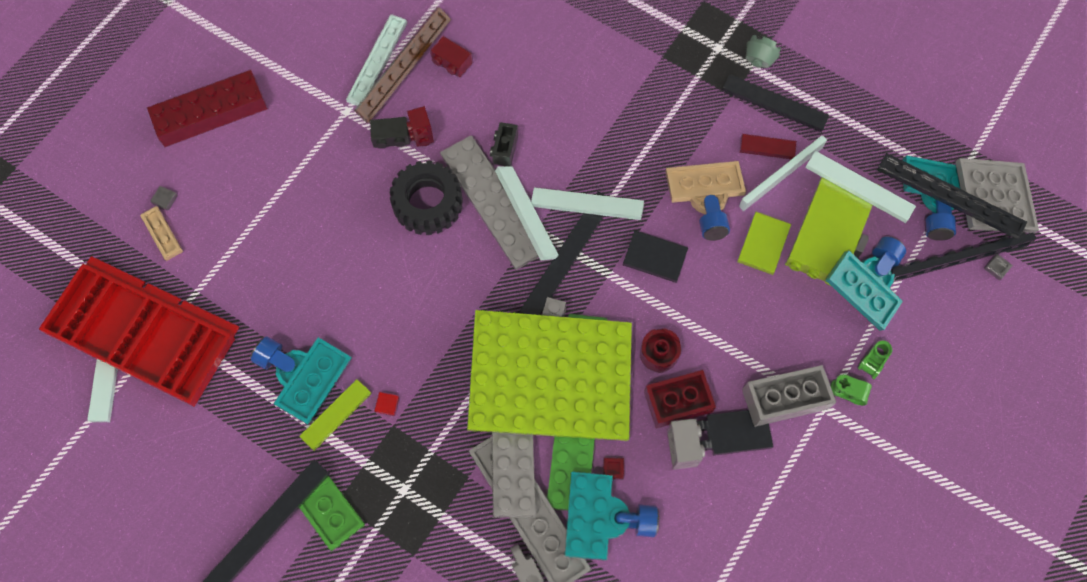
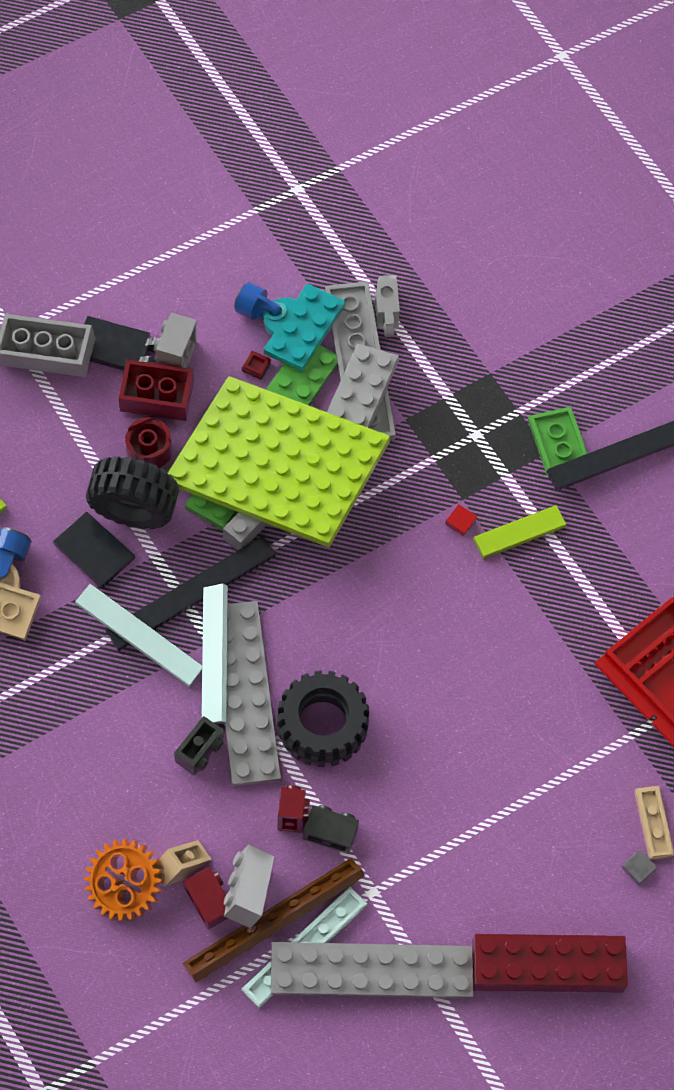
camera: 160 degrees left, 5 degrees down
(304, 375) = (541, 579): teal plate -> none
(325, 61) = (371, 970): none -> light grey plate
(426, 67) = (248, 886): none -> light grey brick
(480, 72) = (182, 861): none -> tan slope
(511, 44) = (134, 860): none -> orange gear
(646, 288) = (132, 492): none -> black tyre

